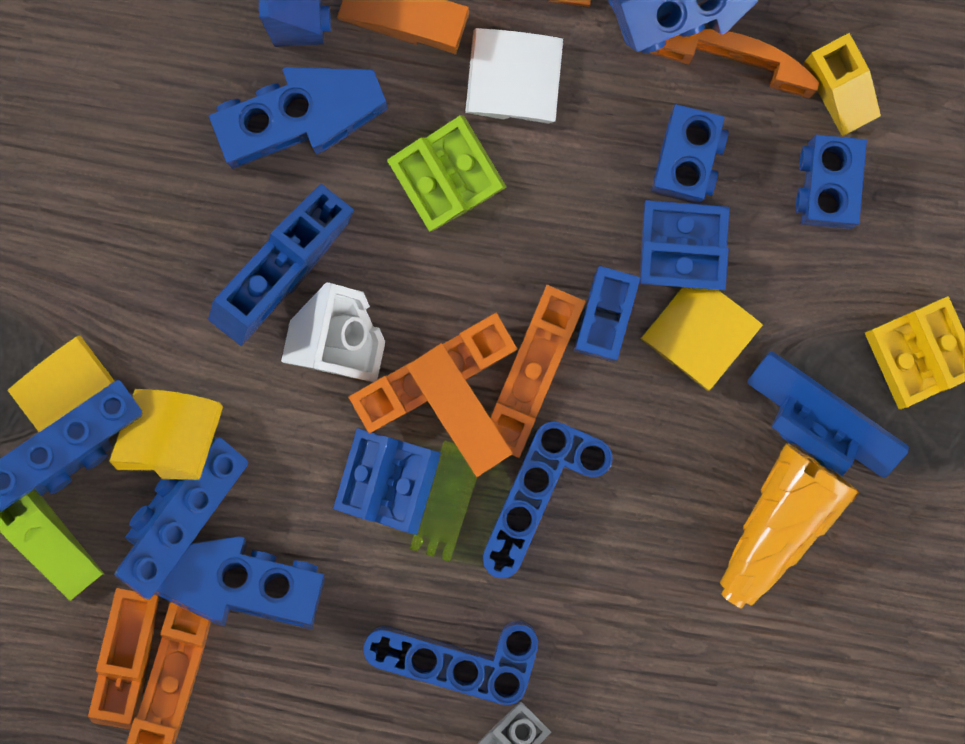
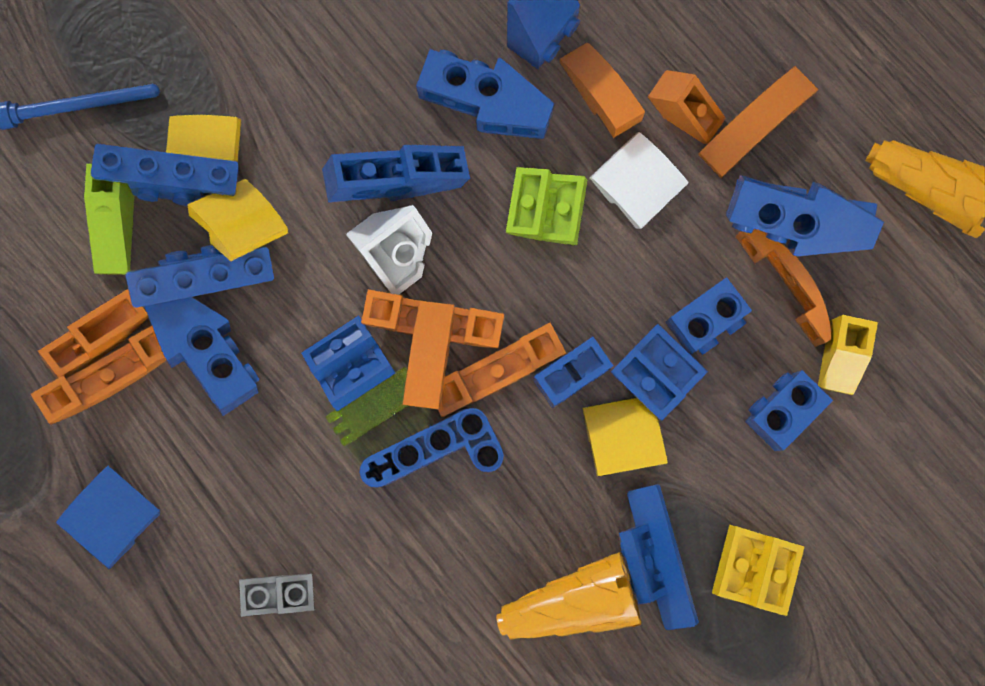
camera: 45 degrees right, 5 degrees down
(449, 655) = (292, 504): blue beam -> none

